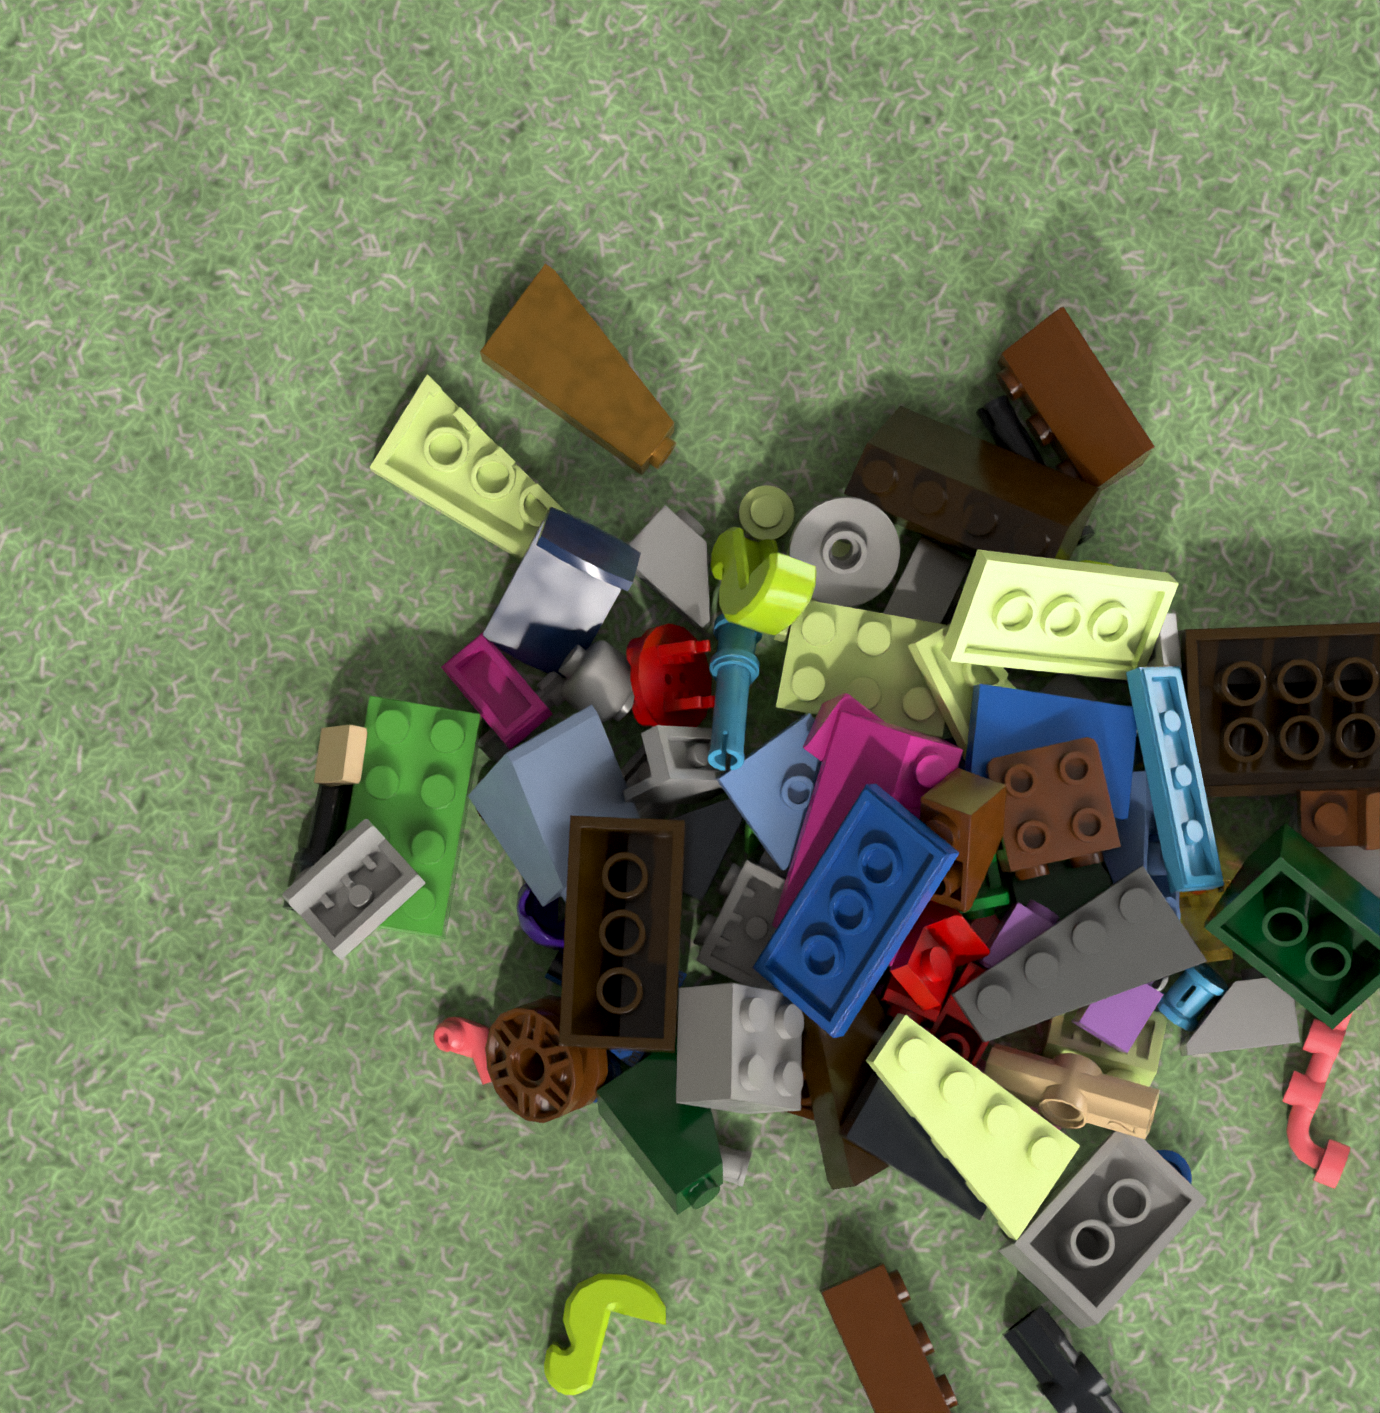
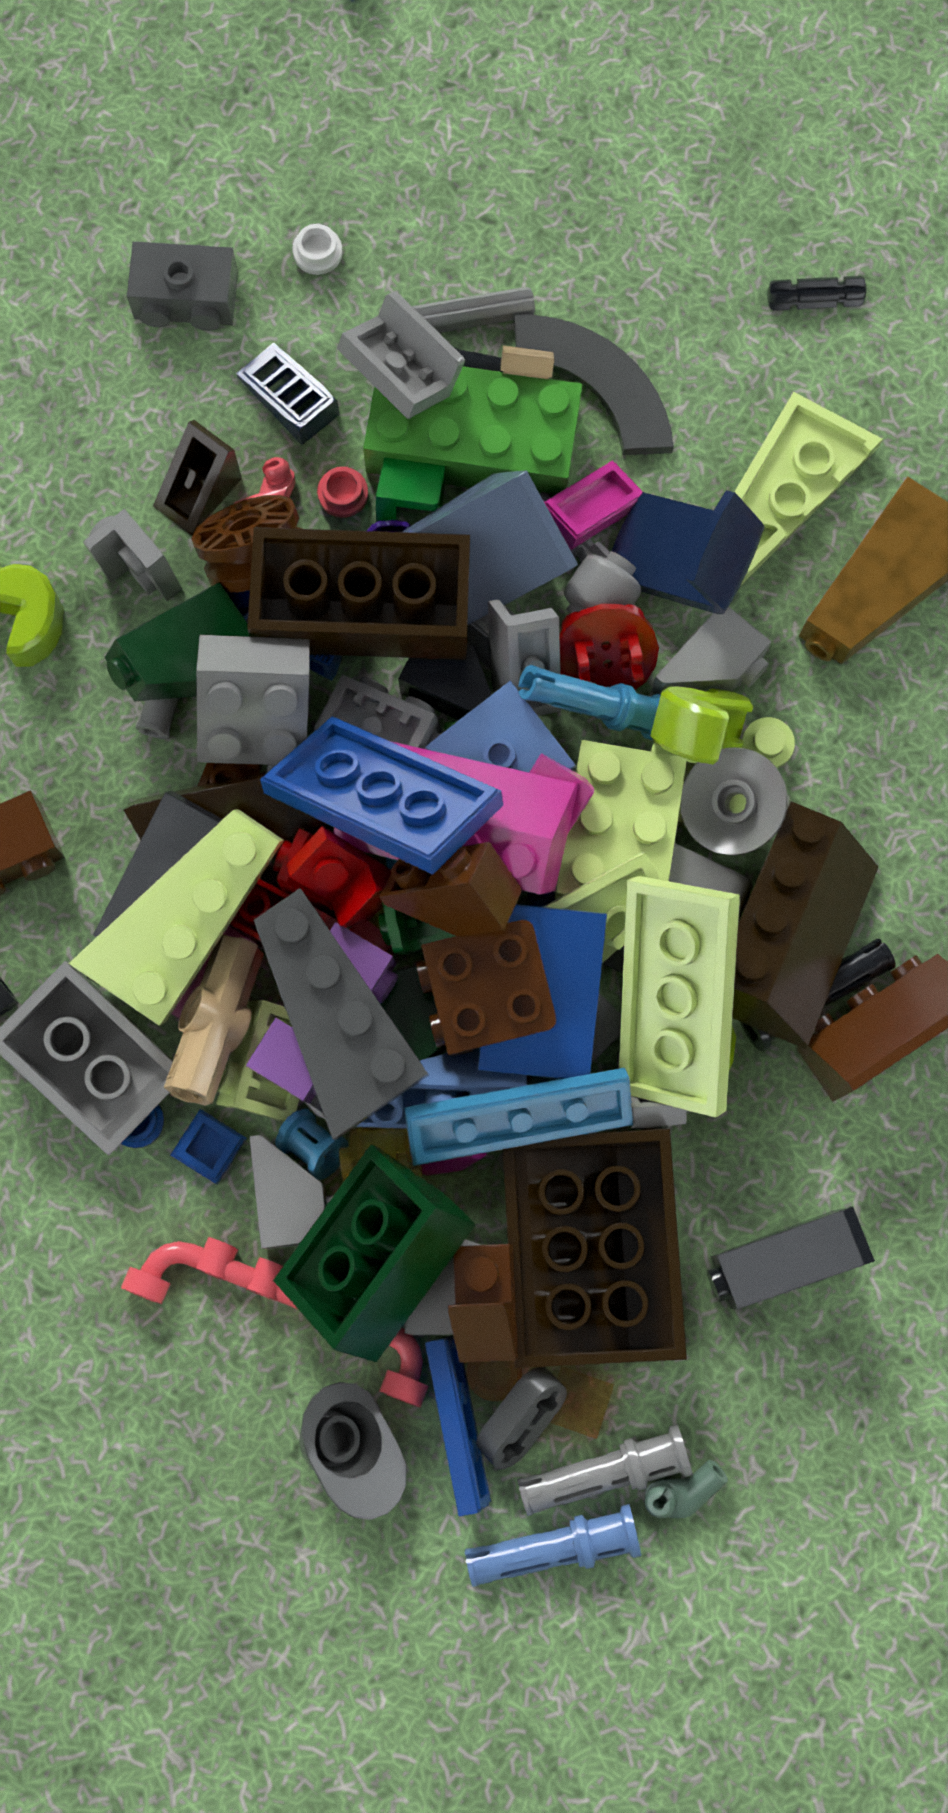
camera: 90 degrees right, 5 degrees down
(177, 992) = (317, 249): none -> white plate
(224, 1143) = (182, 284): none -> dark grey brick
(243, 435) = (816, 293): none -> black axle
(258, 829) = (478, 309): none -> light grey axle
(334, 671) = (606, 372): none -> dark grey tile
(383, 992) = (312, 419): none -> slope
(462, 1125) = (197, 478): none -> dark brown slope
(471, 963) = (342, 492): none -> coral plate
(482, 888) = (408, 486): none -> green panel
(562, 1176) = (122, 545): none -> light grey bracket
(1189, 1102) = (208, 1146): none -> blue tile
(1306, 517) = (790, 1259): none -> black slope

